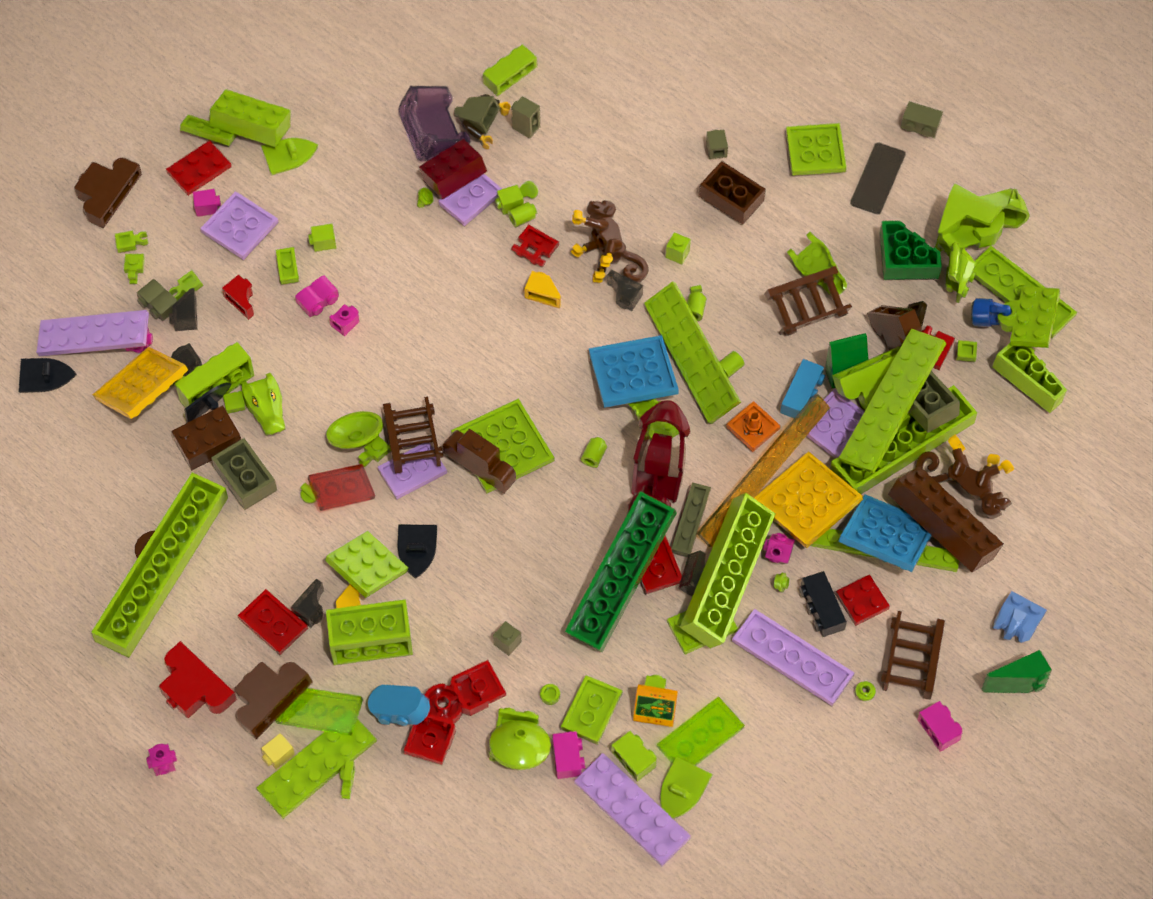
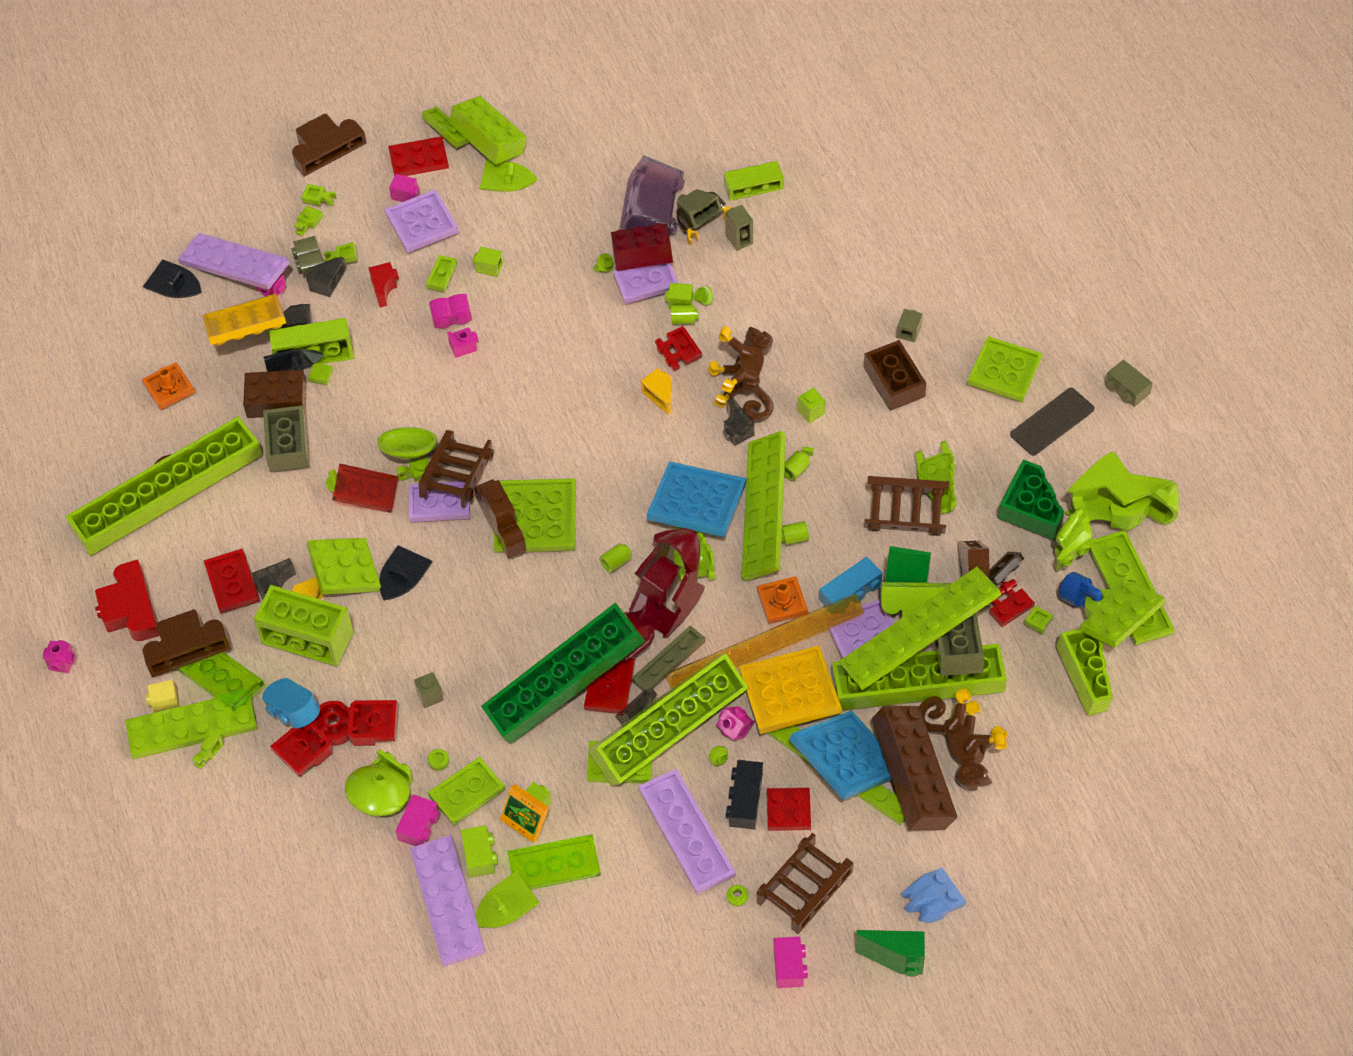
camera: 30 degrees right, 5 degrees down
(101, 467) = (168, 380): none -> orange plate
(265, 403) = (346, 385): lime animal -> none

